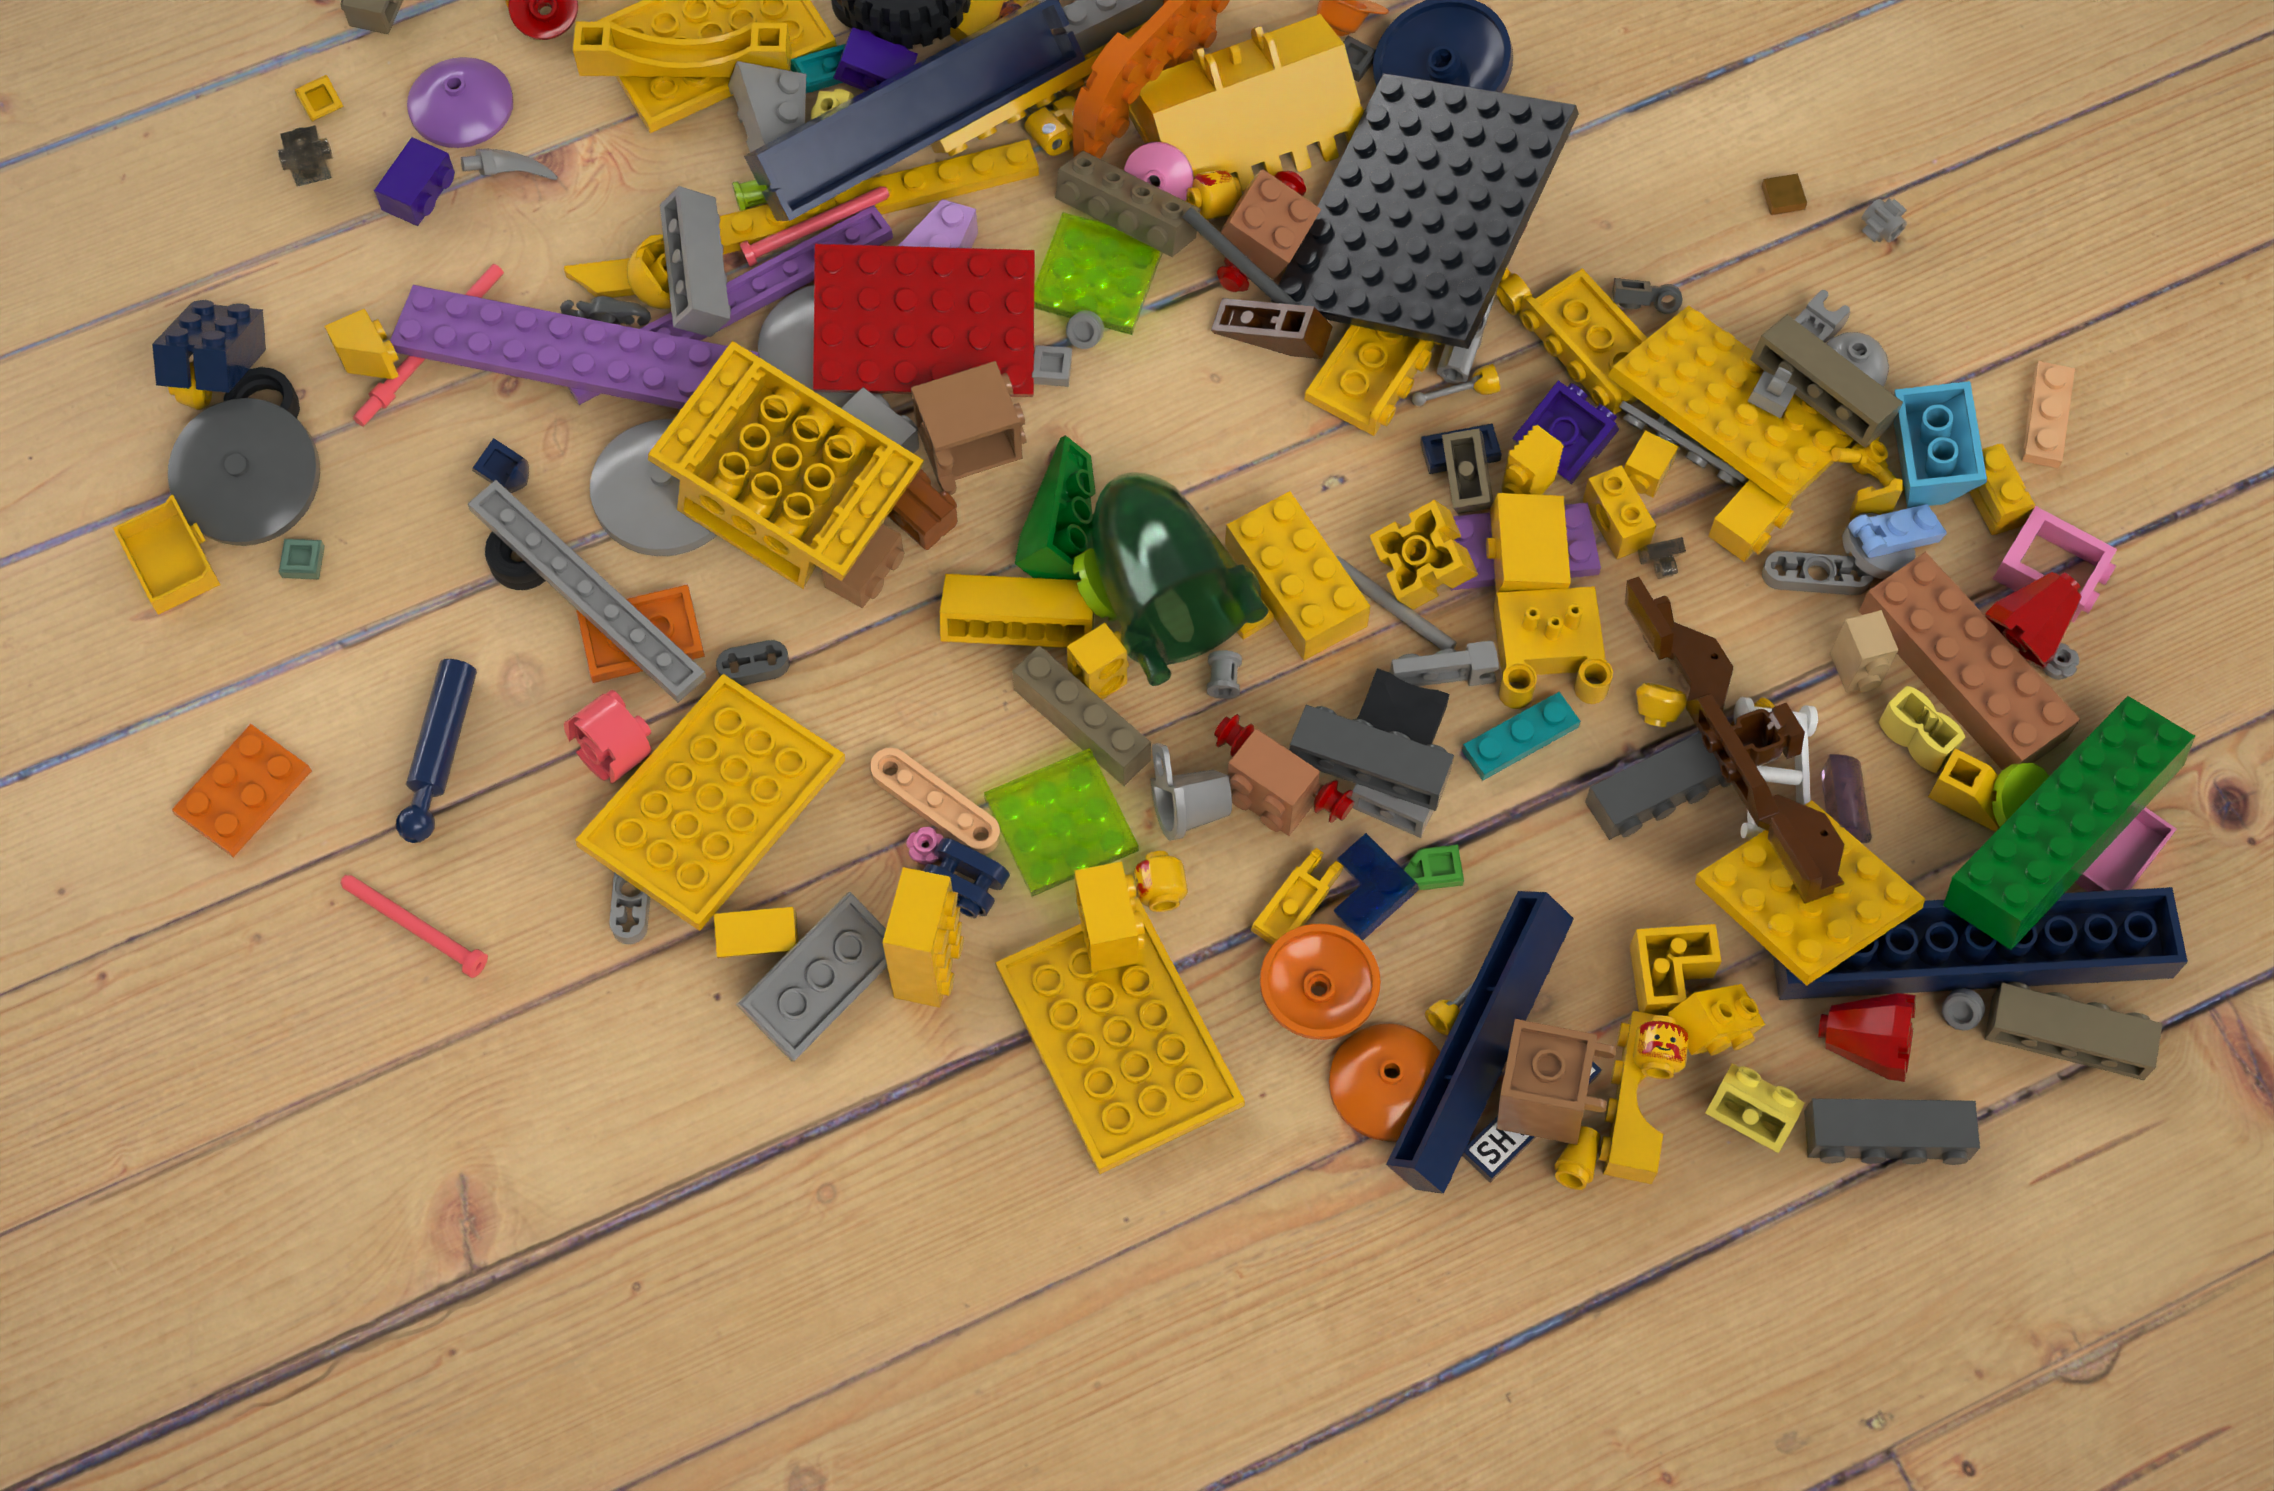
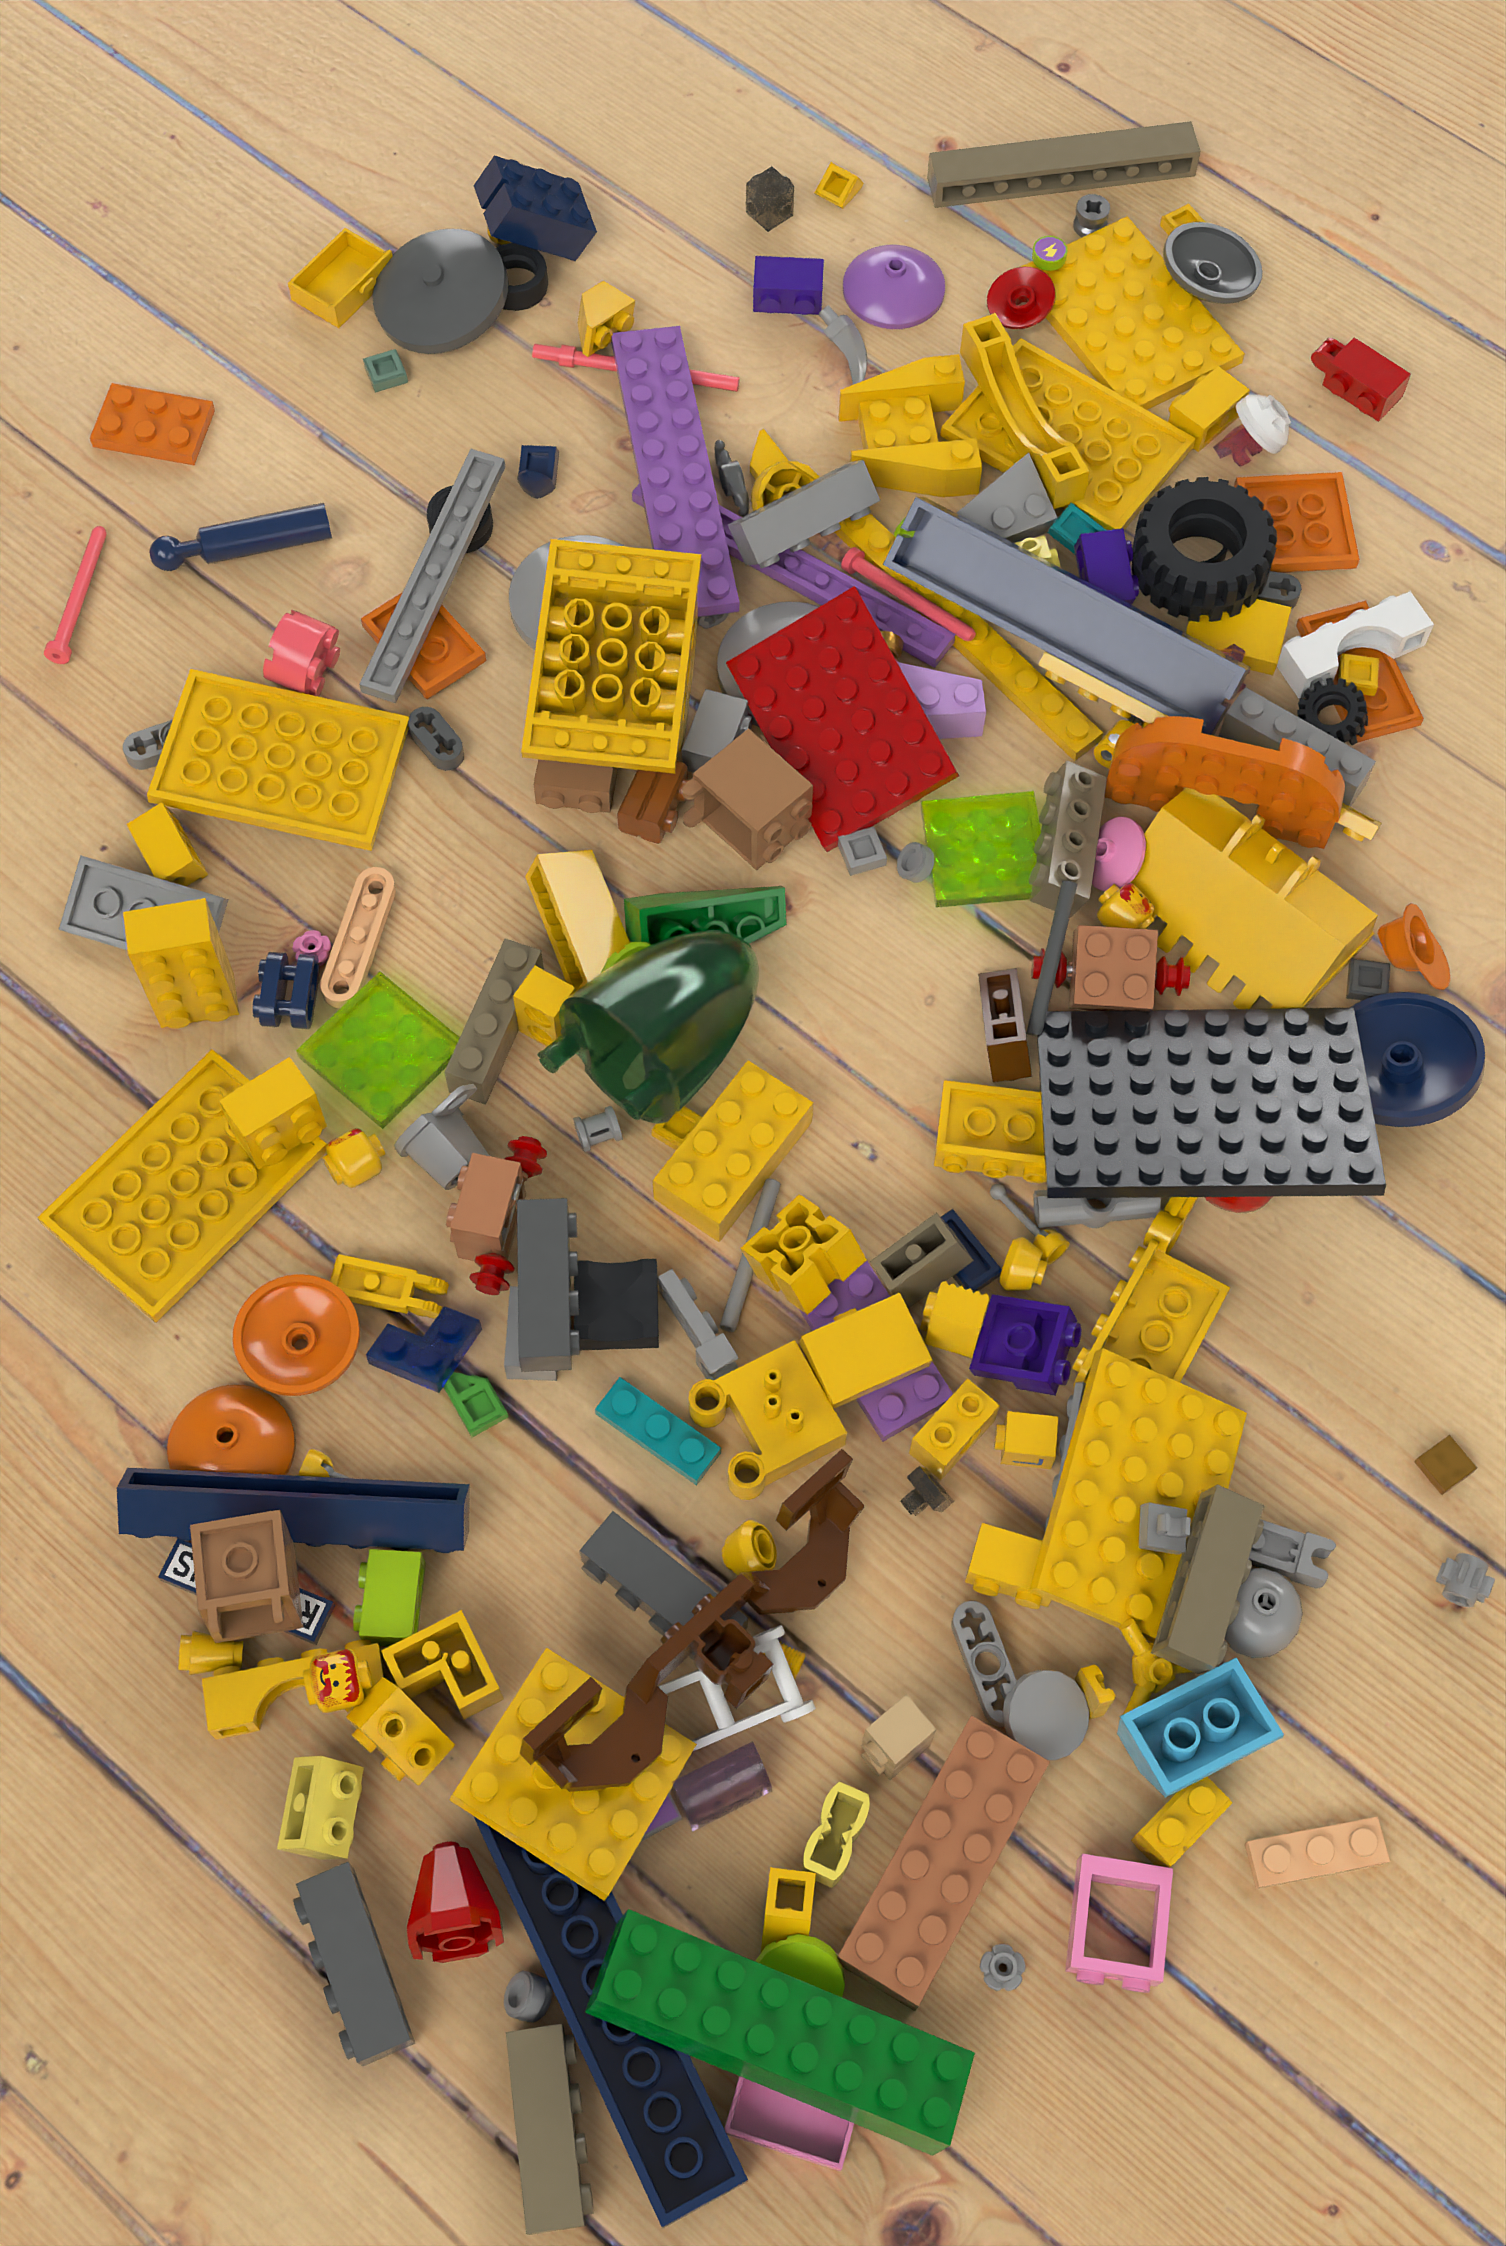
camera: 65 degrees right, 0 degrees up
(634, 159) = (901, 431): none -> yellow wedge
(1497, 405) = (1022, 1266): none -> yellow cone
(1589, 993) = (391, 1596): none -> lime brick
(1634, 293) = (1232, 1353): dark grey plate -> none
(1897, 530) = (1071, 1726): light blue plate -> none
(2037, 616) = (1023, 1914): red cone -> none

